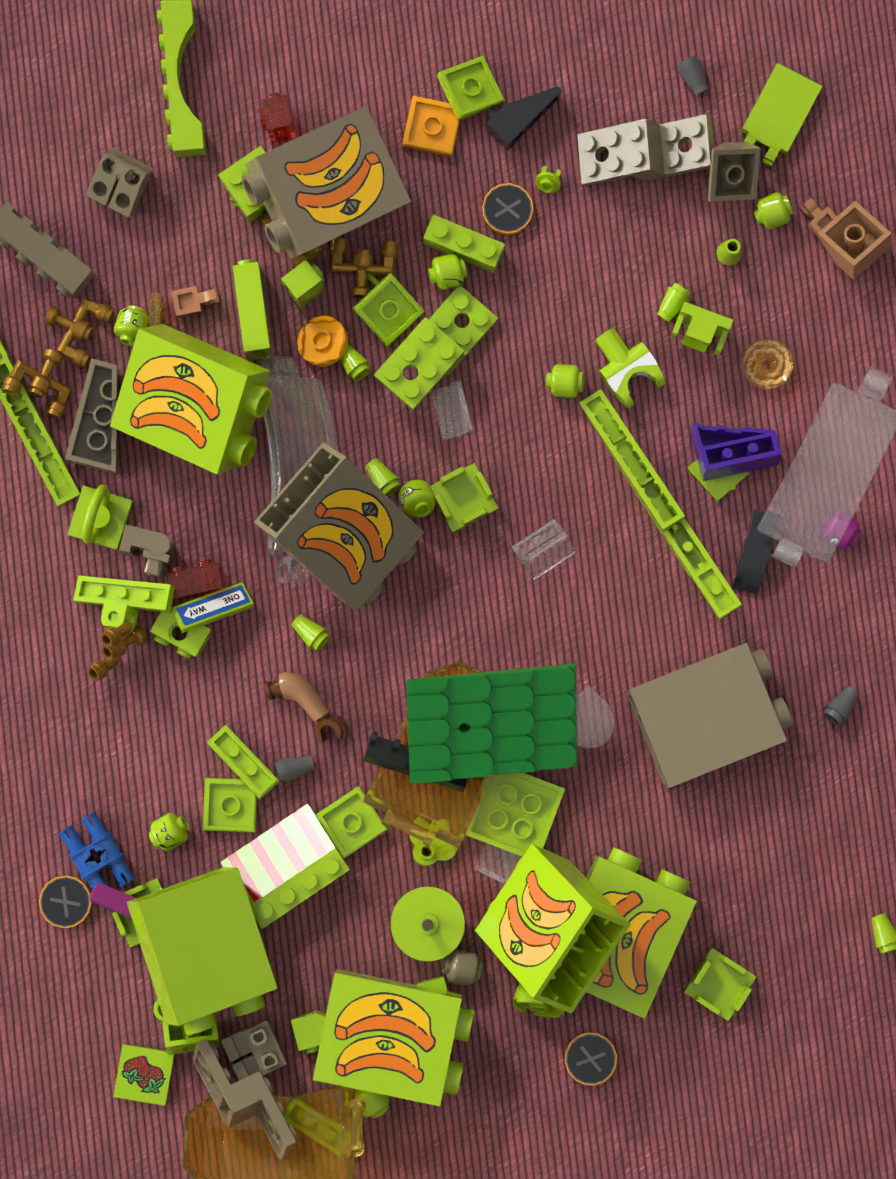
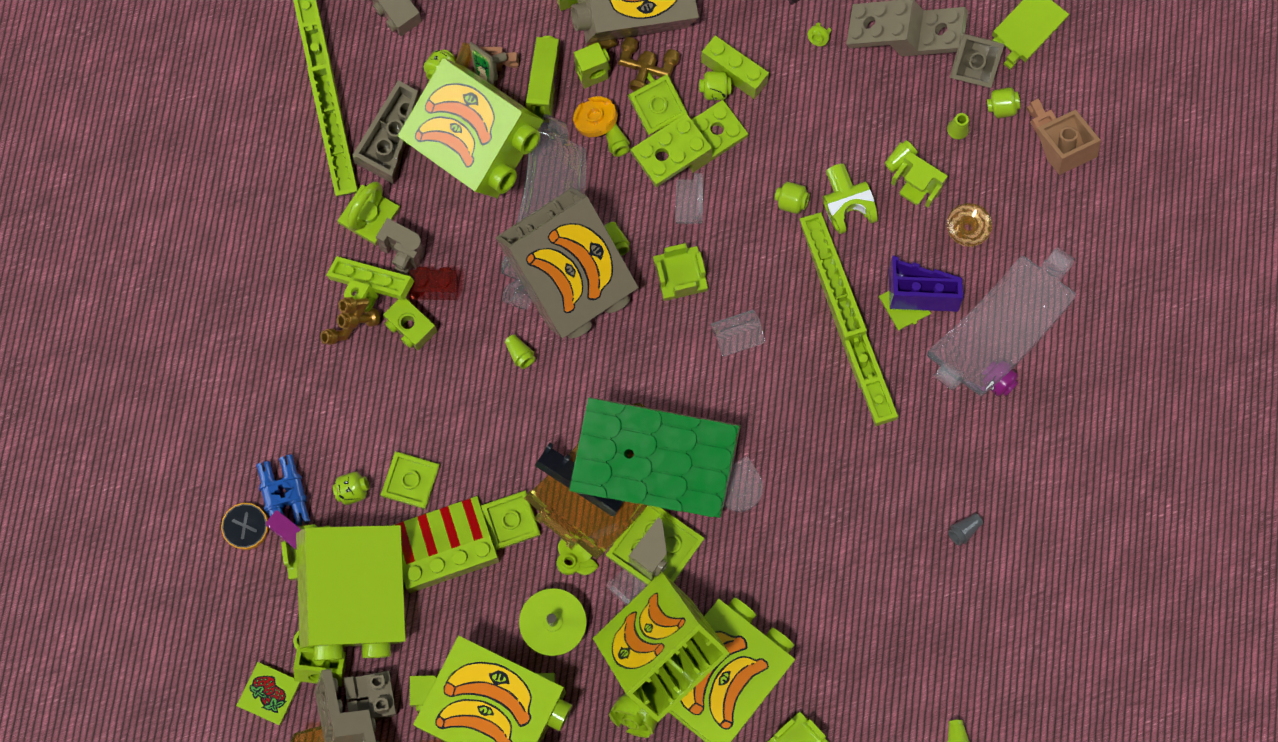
camera: 15 degrees right, 10 degrees down
(40, 382) = (350, 92): pearl gold piece -> none
(78, 328) = (394, 58): pearl gold piece -> none
(185, 315) = (485, 64): none -> dark tan shield
(212, 607) = (441, 308): tile -> none
(243, 762) = (431, 445): lime tile -> none
(292, 768) = (471, 461): dark grey cone -> none
(297, 688) = (496, 396): piece -> none
(417, 498) = (640, 262): lime head -> none
(462, 967) = (573, 671): dark tan head -> none
(507, 209) = (779, 49): black tile -> none
(514, 824) = (650, 553): none -> dark tan slope
(709, 714) = (846, 504): dark tan brick -> none
(753, 557) = (917, 383): black slope -> none

